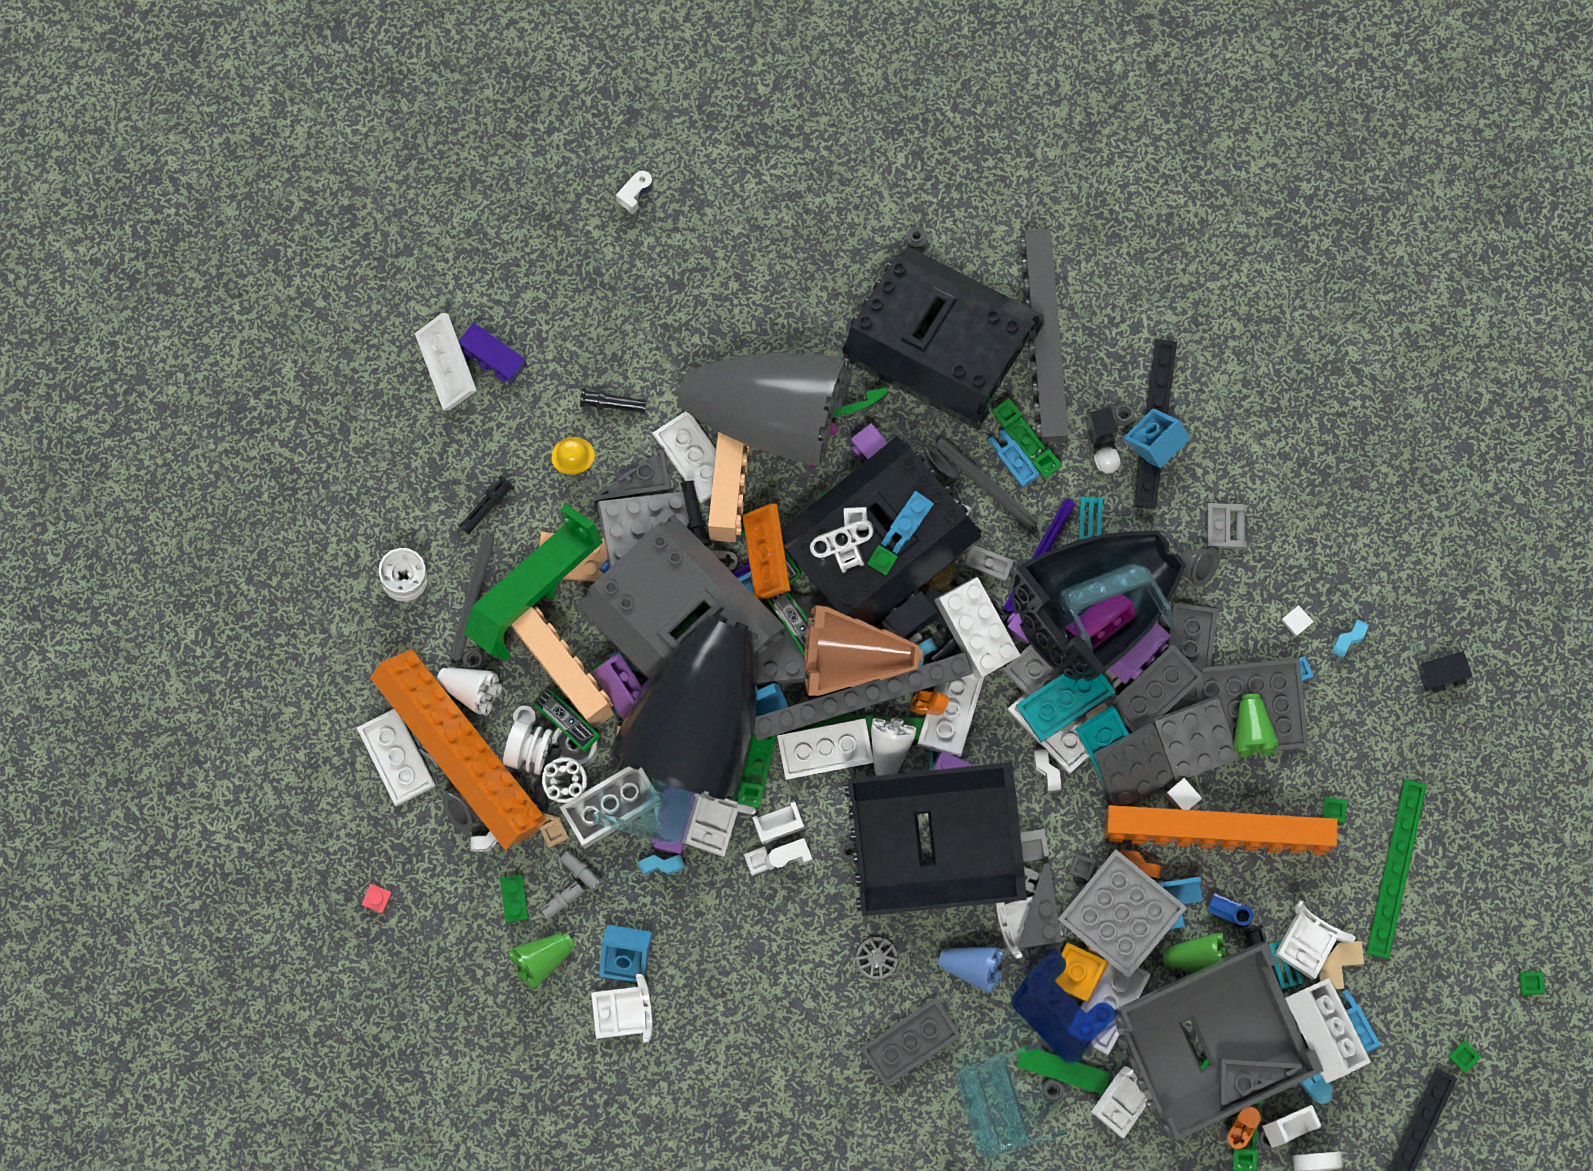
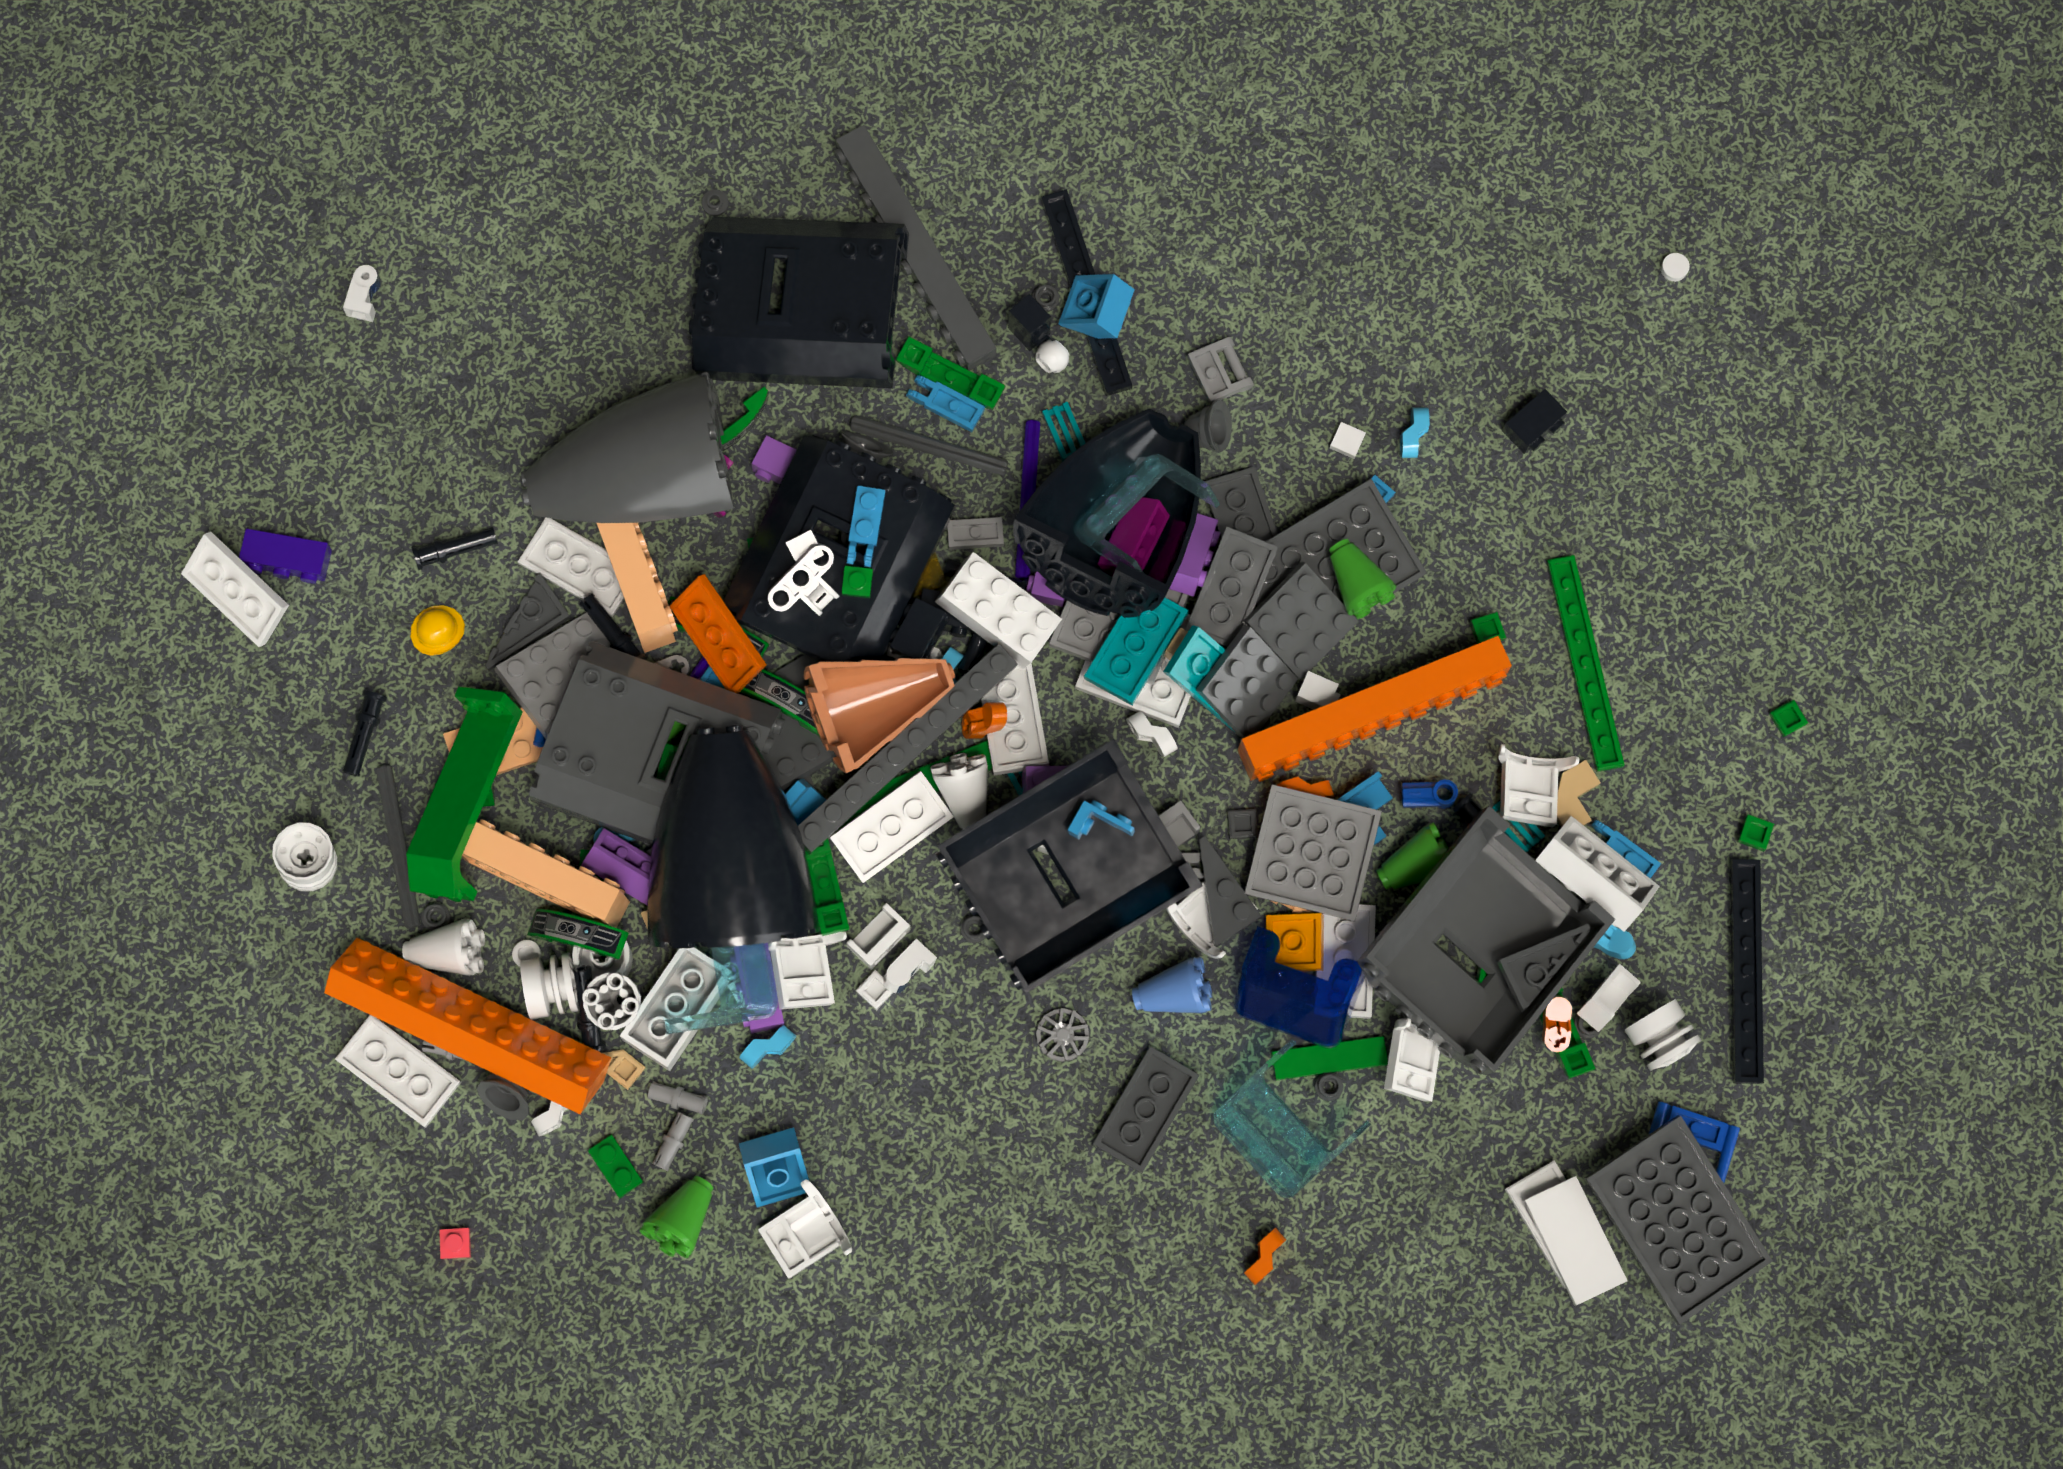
camera: 35 degrees left, 0 degrees up
(963, 811) = (1083, 823): none -> dark azure bracket

